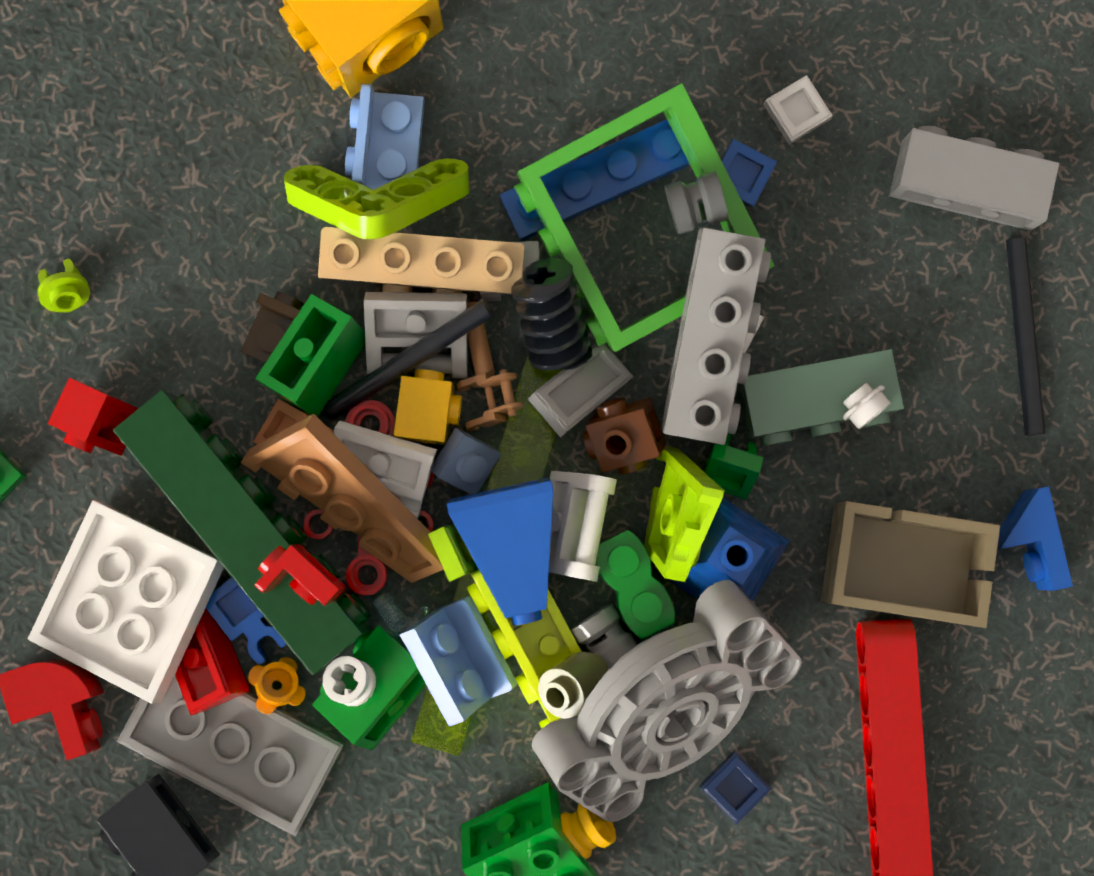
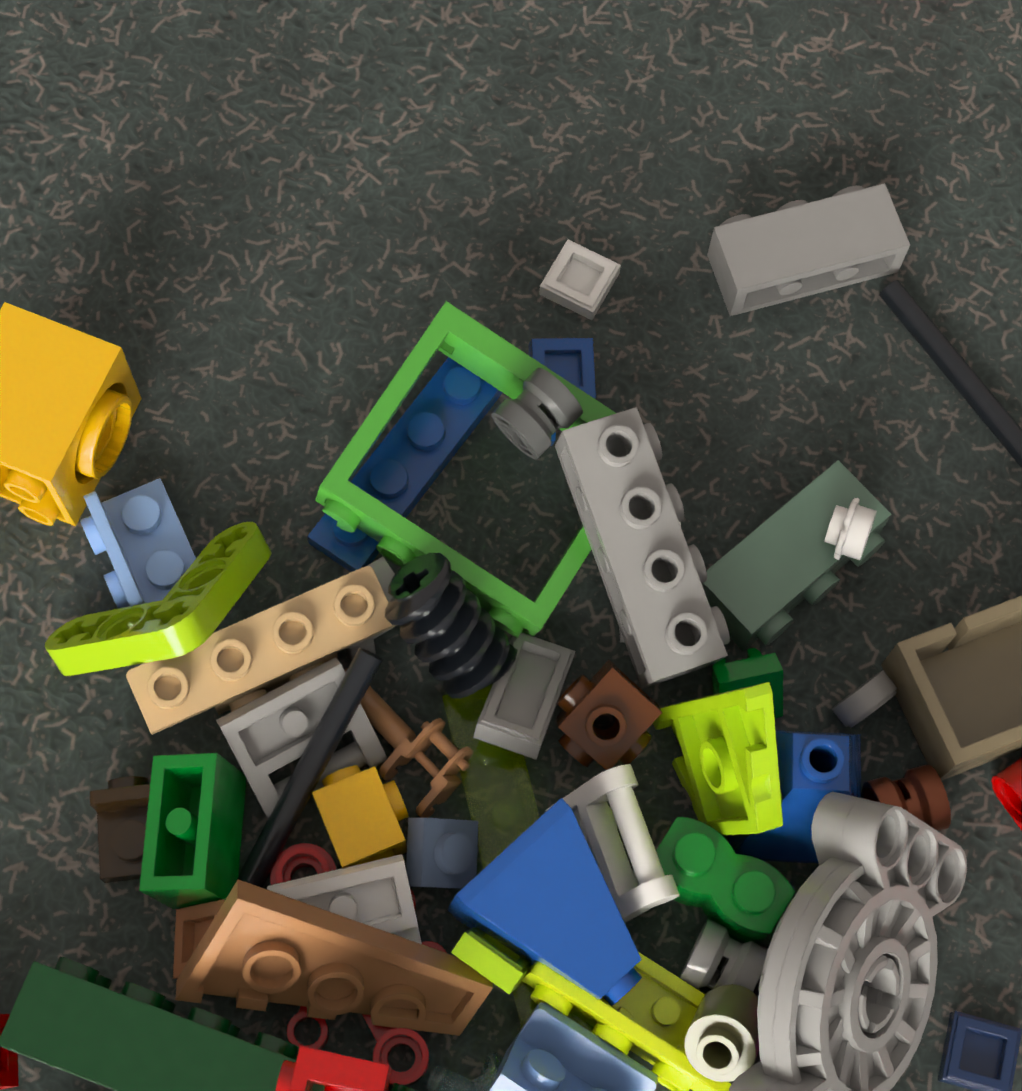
camera: 30 degrees left, 15 degrees down
(790, 605) = (918, 793): none -> copper wheel
(807, 521) = (865, 699): none -> light grey tile

